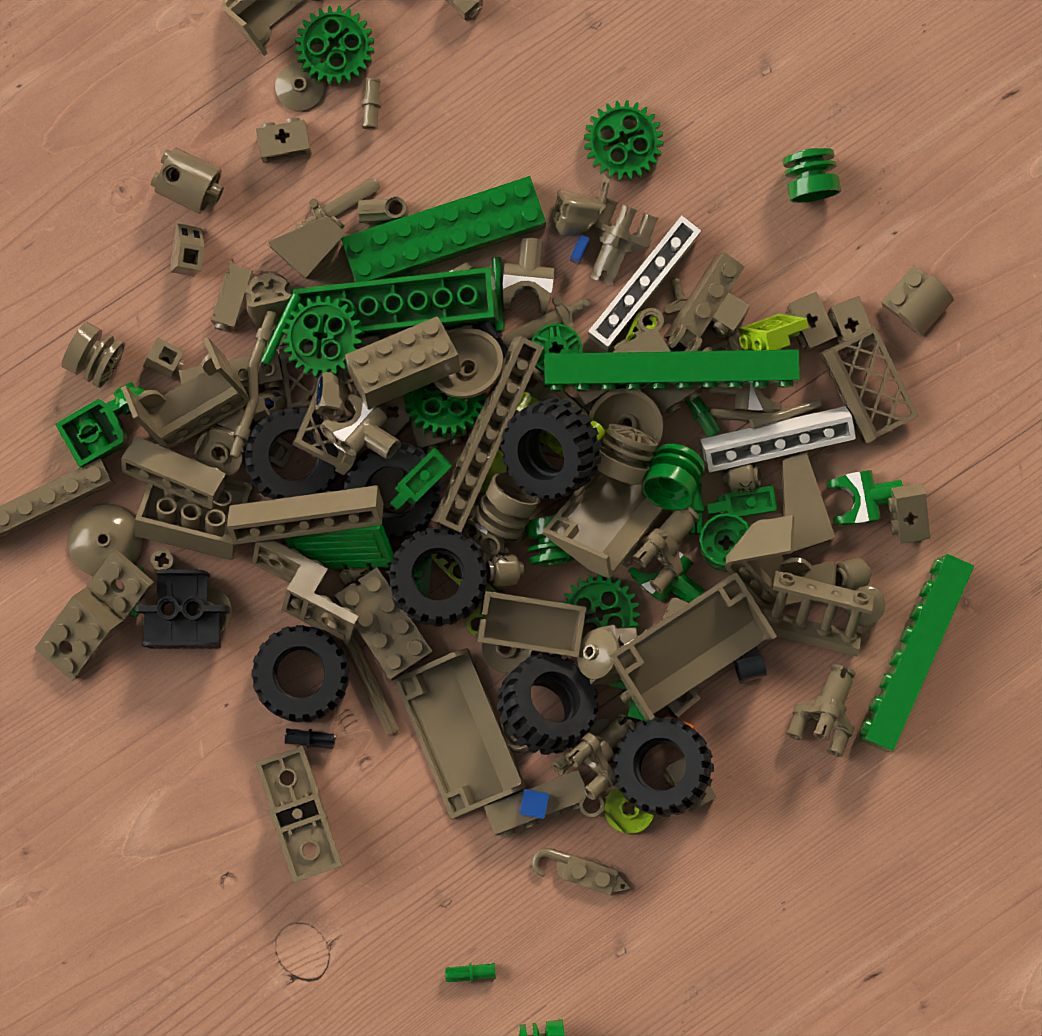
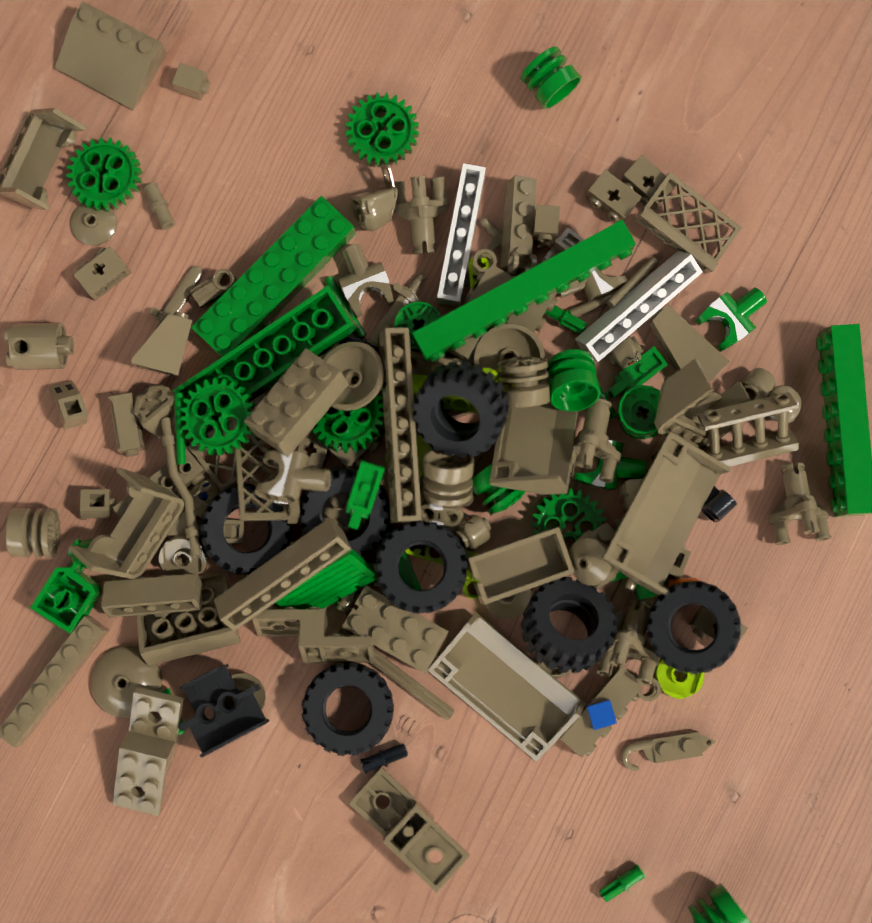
camera: 25 degrees left, 0 degrees up
(160, 554) = (178, 668): dark tan bush -> none
(329, 396) = (250, 463): dark tan rock -> none
(579, 249) = (393, 236): blue tile -> none
(771, 332) = (587, 220): lime plate -> none
(909, 500) = (778, 309): dark tan brick -> none
(918, 300) = (689, 135): dark tan brick -> none

